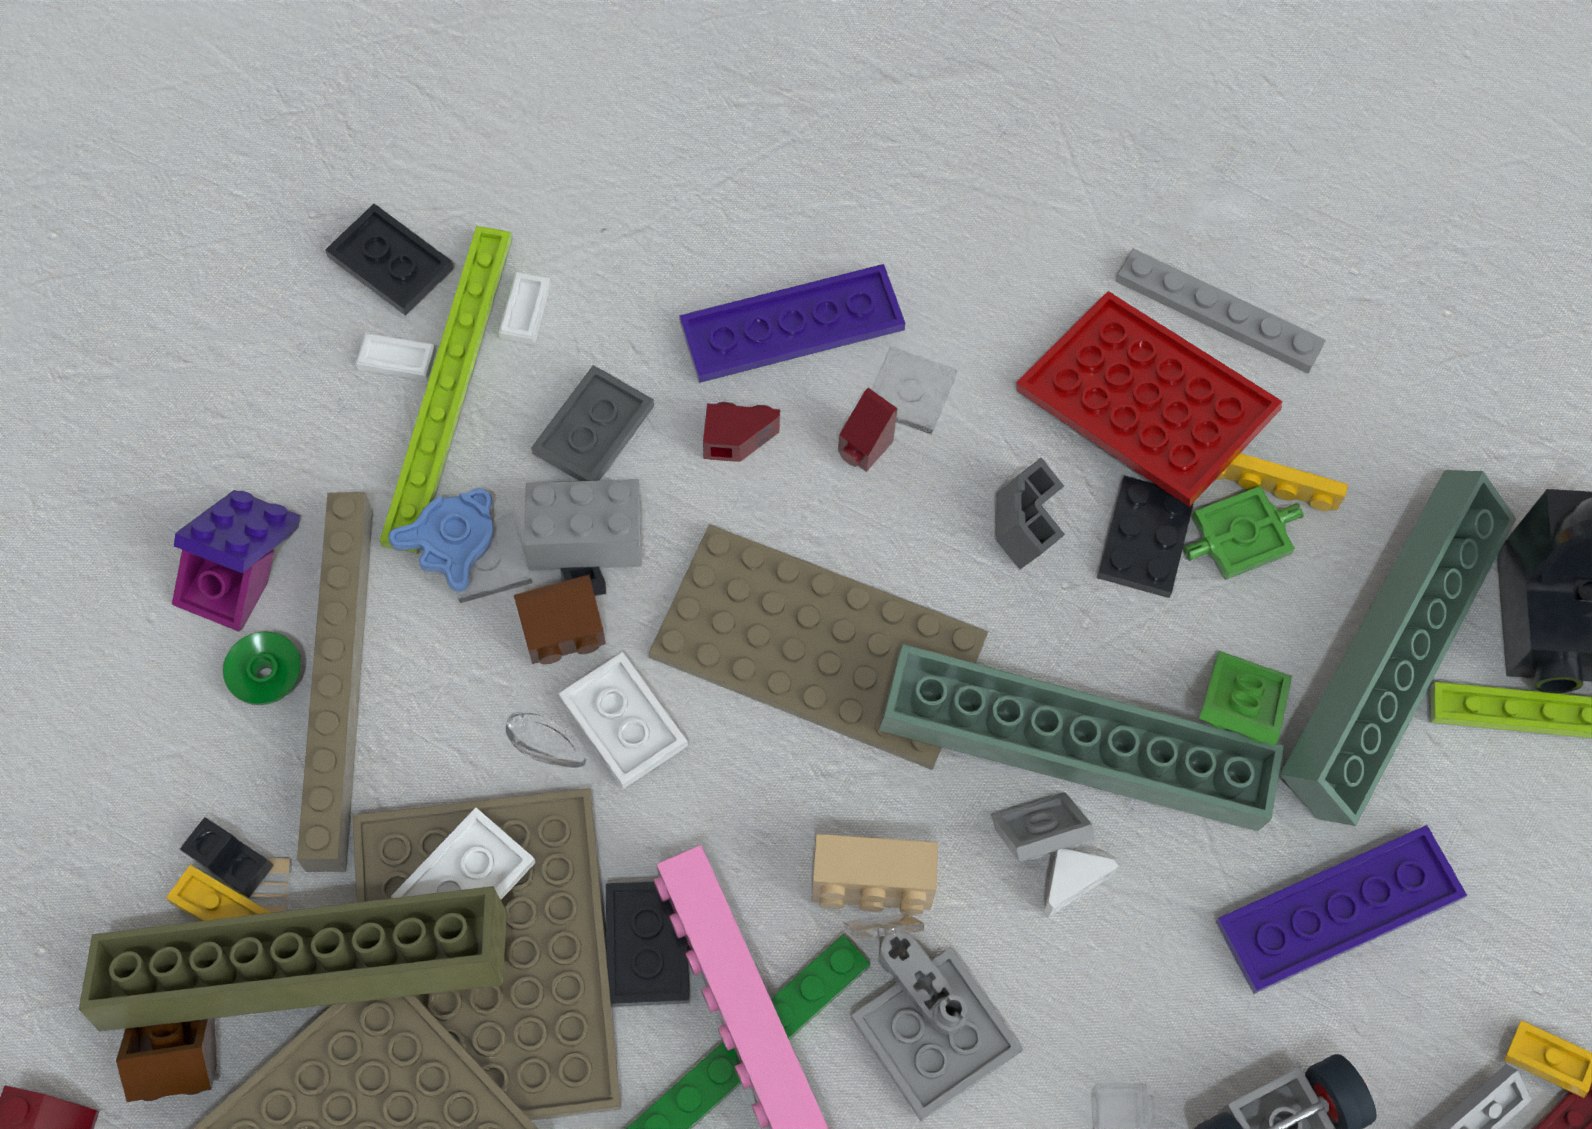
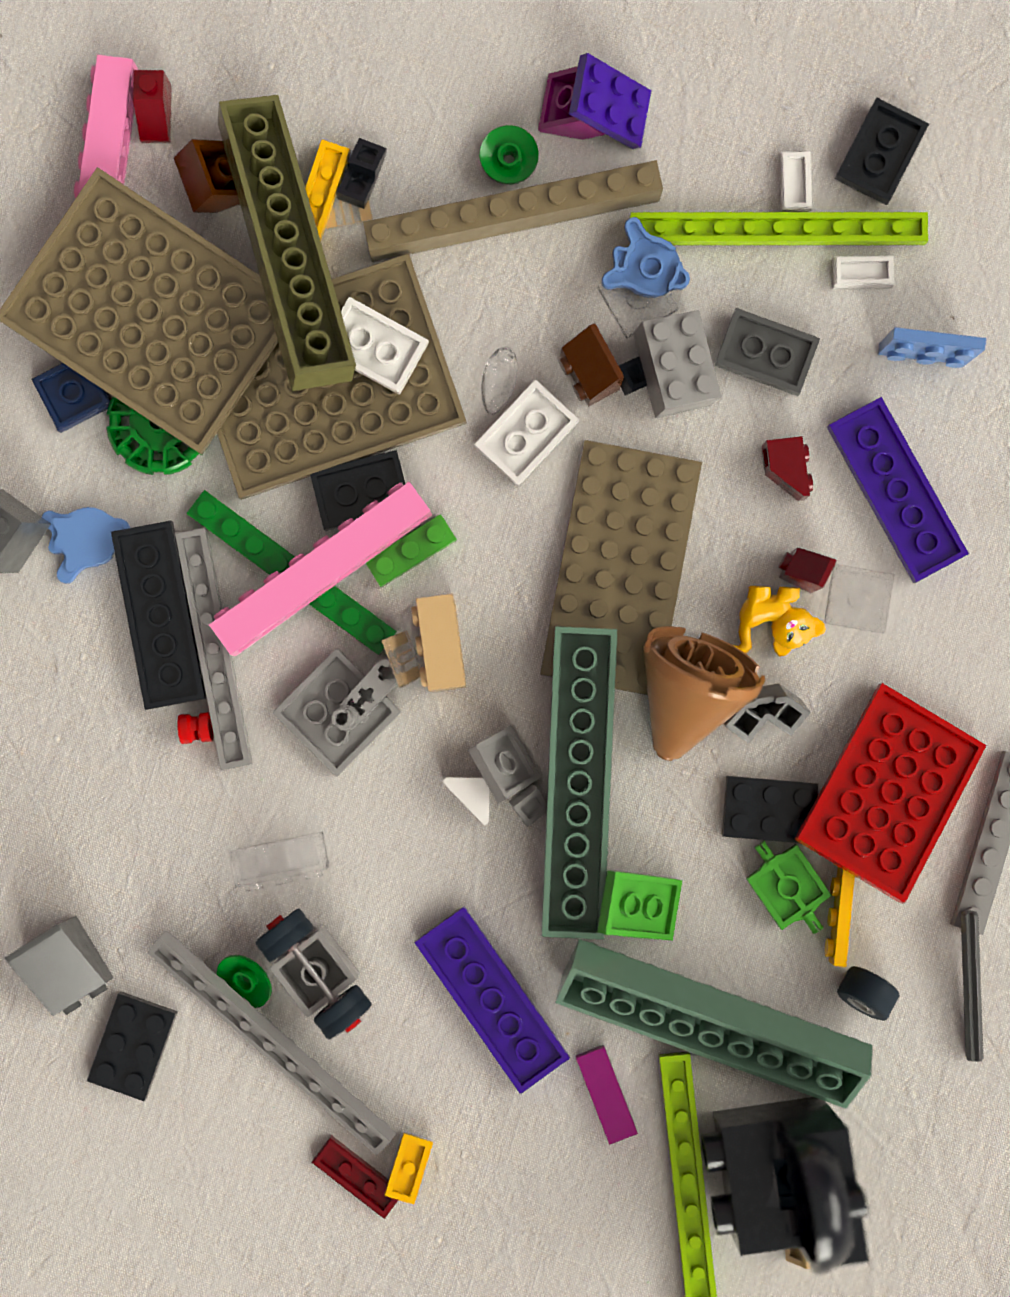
camera: 80 degrees right, 20 degrees up
(636, 250) = (931, 347): none -> medium blue plate
(742, 893) = (411, 550): none -> bright green plate
(929, 466) = (790, 625): none -> yellow animal
(990, 579) = (694, 687): none -> medium nougat cone
(1100, 809) = (529, 804): none -> light grey plate
(1381, 469) = (868, 993): none -> black wheel
(1384, 361) = (972, 986): none -> dark grey axle
(1475, 794) = (606, 1094): none -> magenta tile

